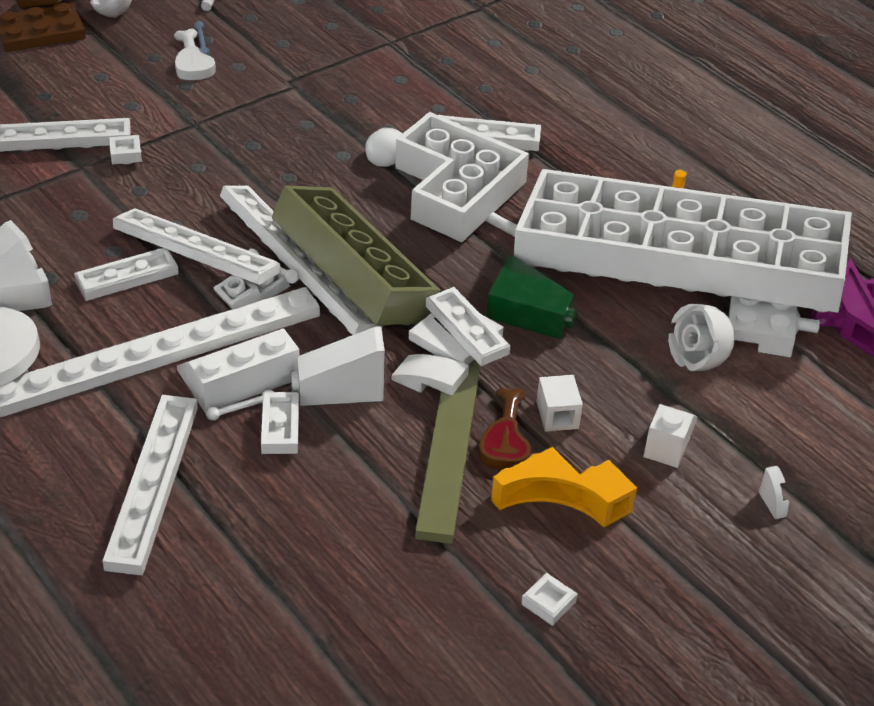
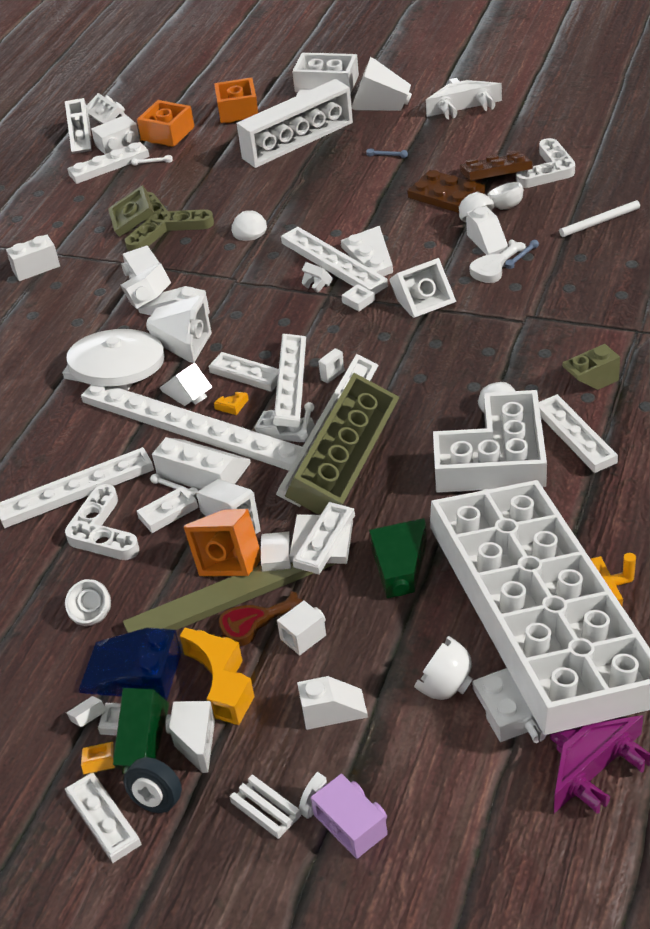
camera: 65 degrees right, 0 degrees up
(50, 154) = (317, 275): none -> white tile
(51, 106) = (369, 250): none -> white wing
(99, 319) = (187, 386): none -> white slope
(105, 18) = (472, 202): none -> white piece
(146, 35) = (485, 230): none -> white slope
(164, 306) = (231, 404): none -> light orange tile
(174, 107) = (422, 288): none -> white slope
(207, 212) = (331, 365): none -> white plate
(233, 498) = (82, 528): none -> white beam
(368, 542) = (88, 602): none -> white piece
(407, 392) = (224, 543): none -> orange slope
(422, 76) = (595, 367): none -> olive slope
(489, 549) = (135, 661): none -> clear blue slope
(524, 615) = (86, 711): none -> white tile
(598, 634) = (97, 758): none -> light orange tile
(601, 577) = (139, 726): none -> dark green slope
(631, 542) = (192, 731): none -> white slope
(675, 668) = (103, 817): none -> white tile
(686, 596) = (152, 785): none -> black wheel
(753, 530) = (283, 804): none -> white tile
(820, 479) = (350, 815): none -> lavender brick

